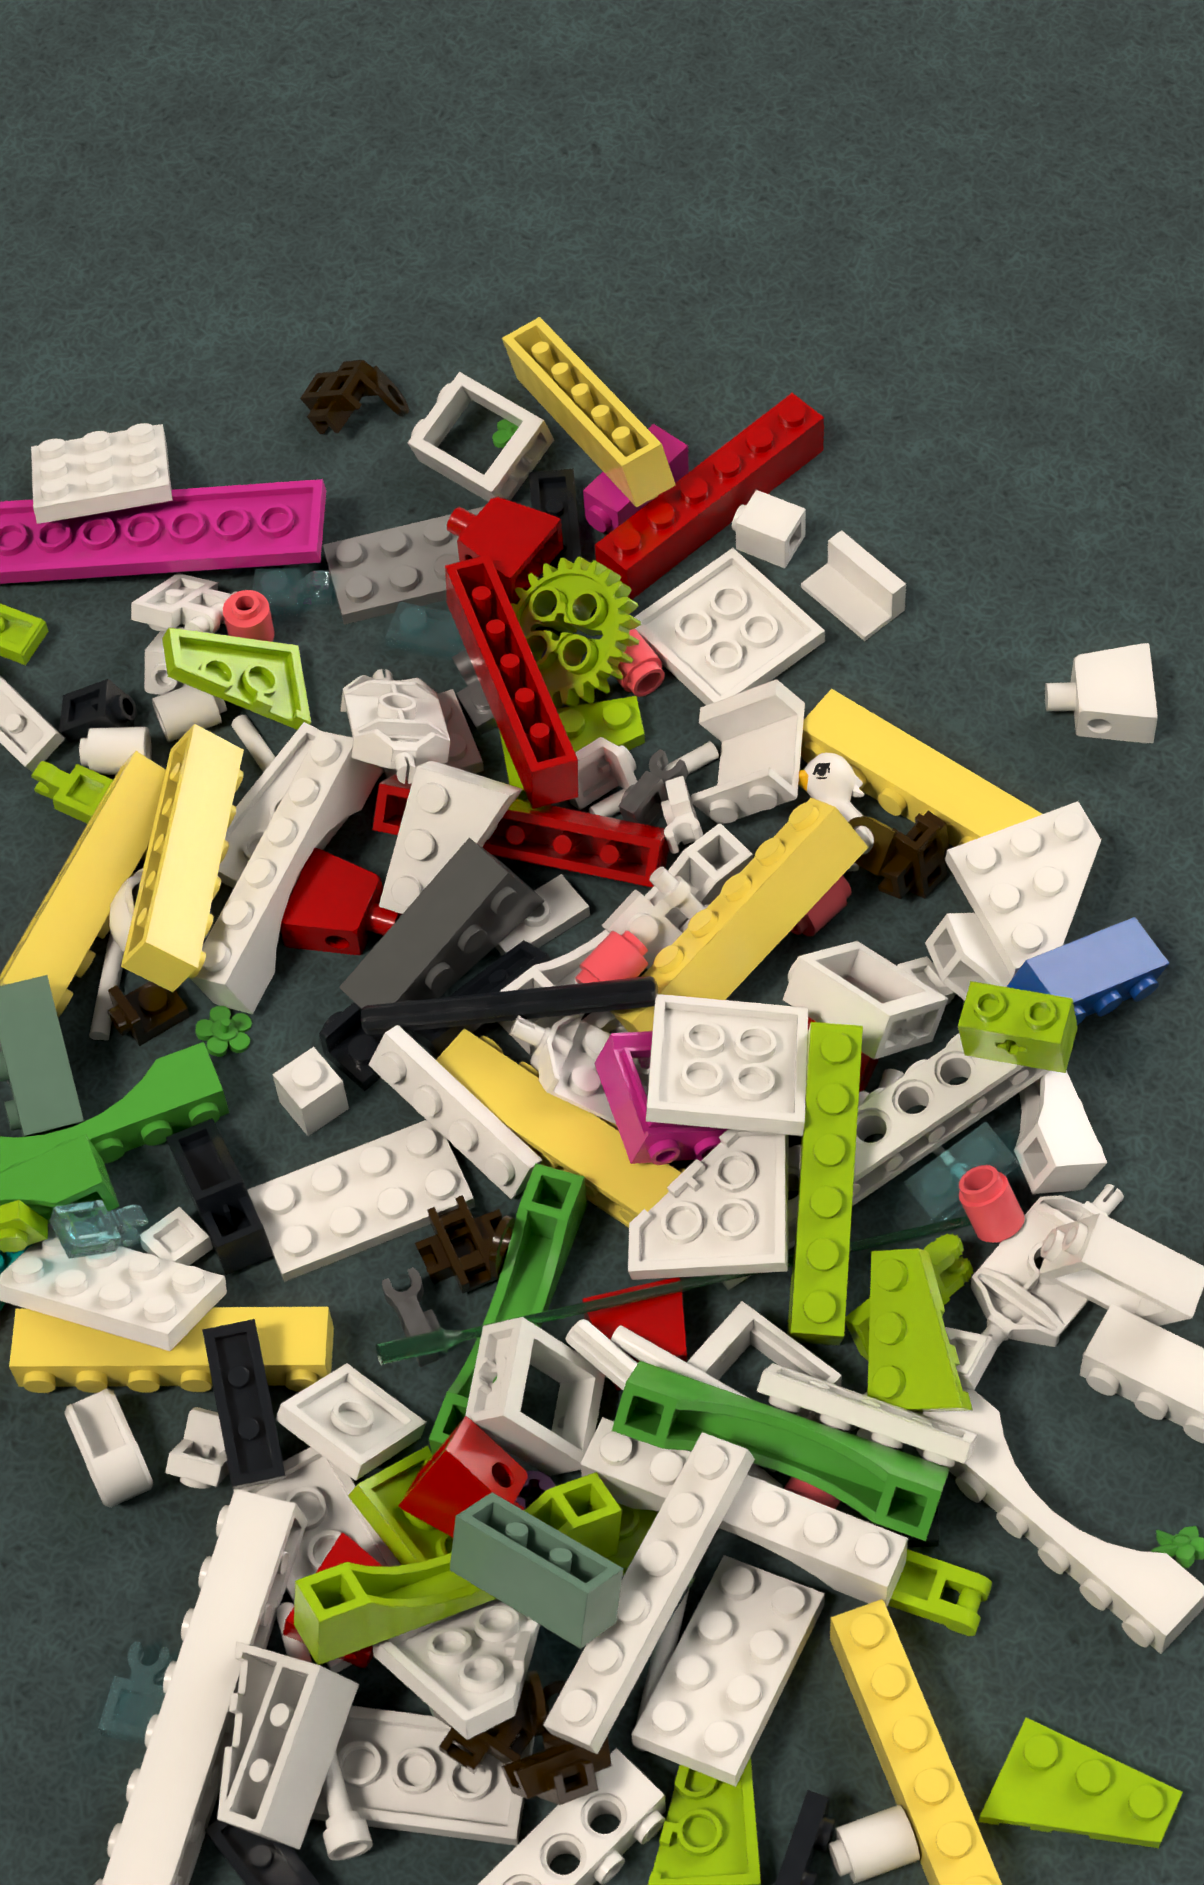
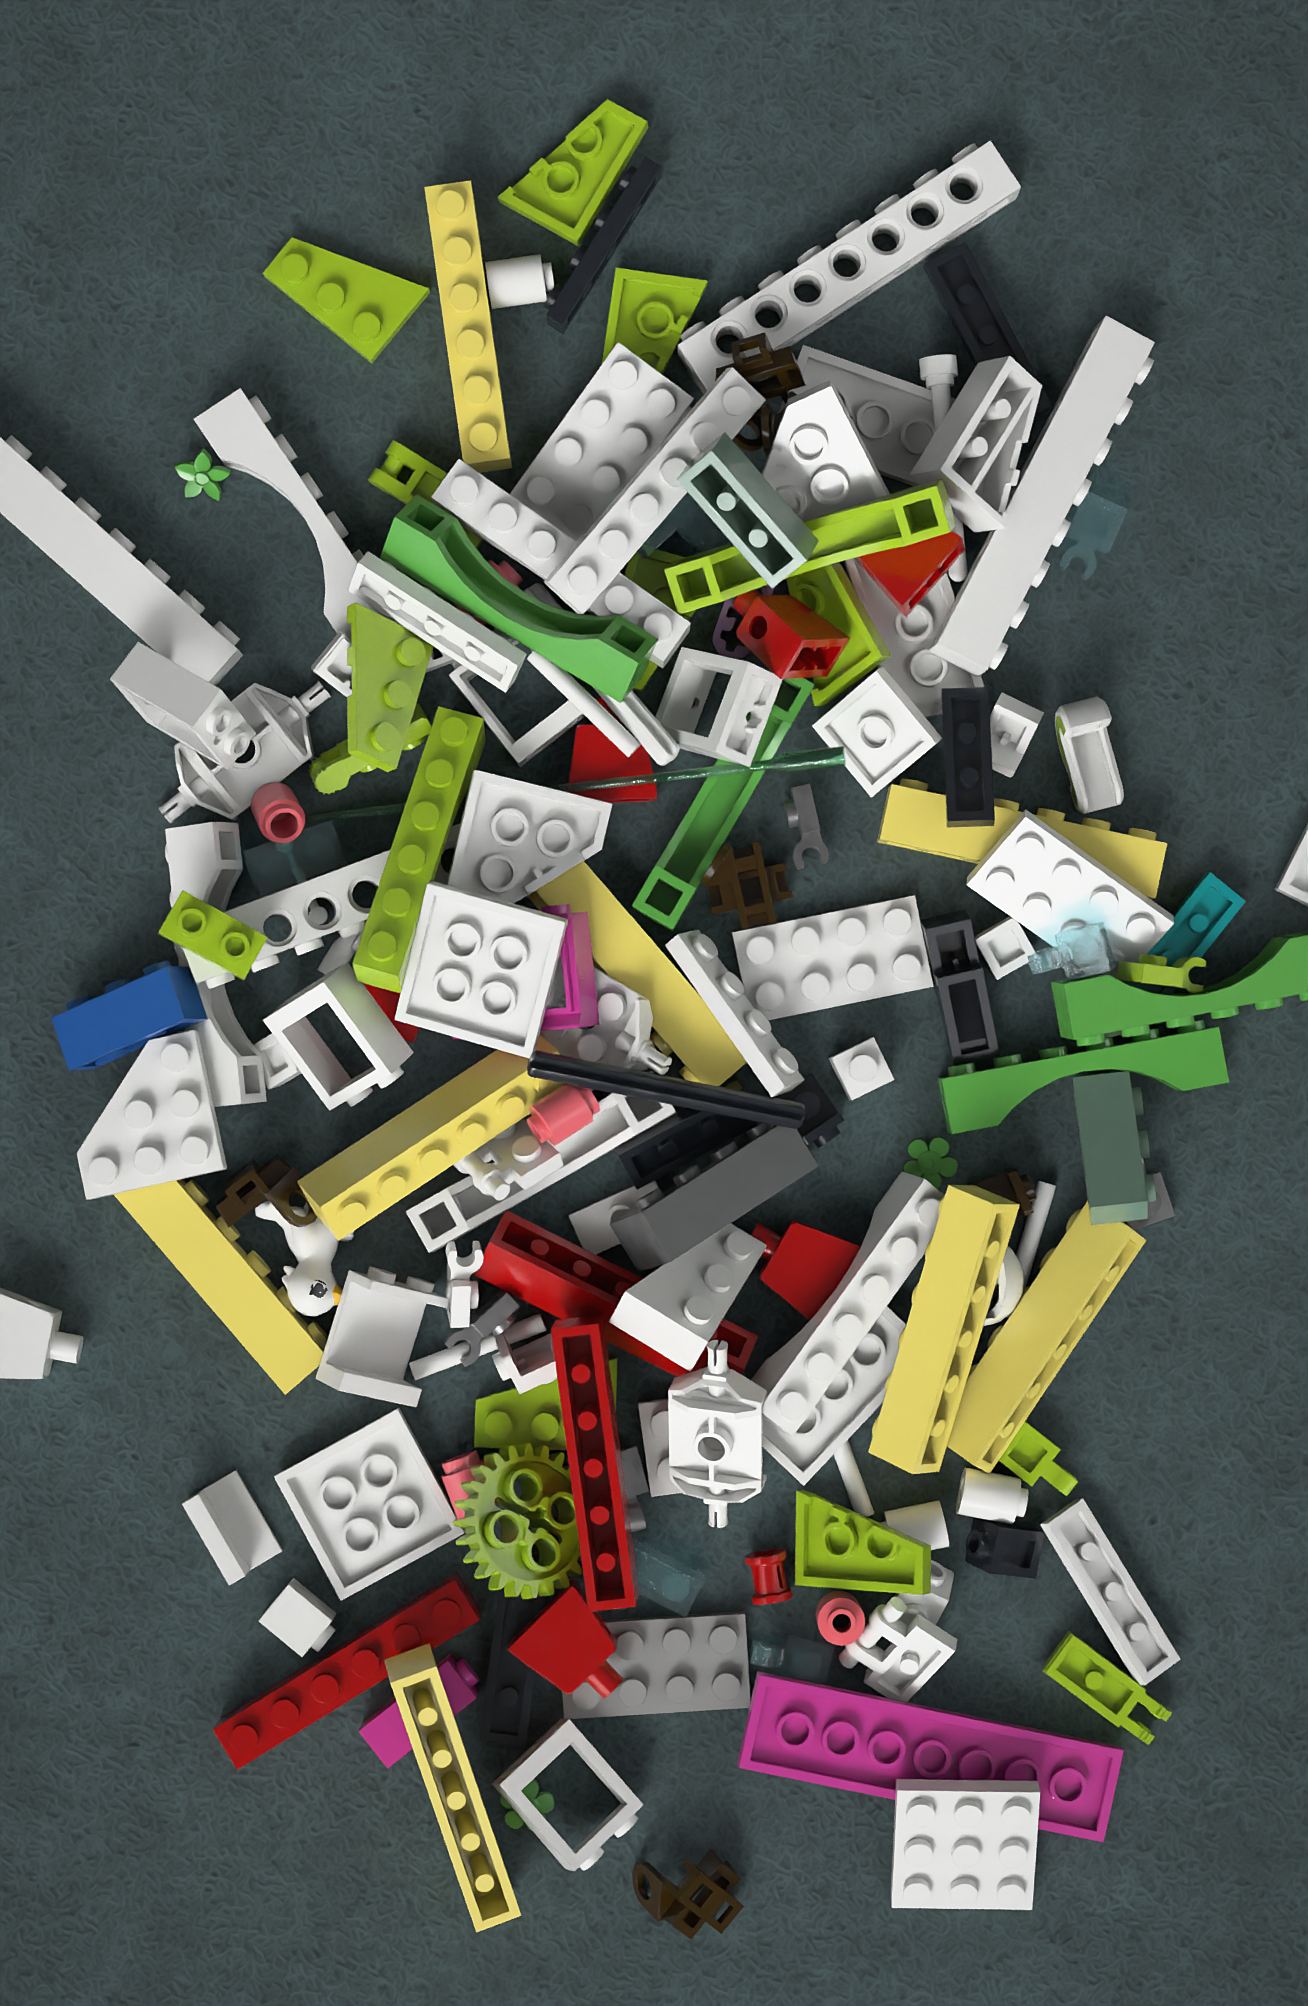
camera: 175 degrees left, 30 degrees up
(324, 647) = (768, 1576): none -> red bush

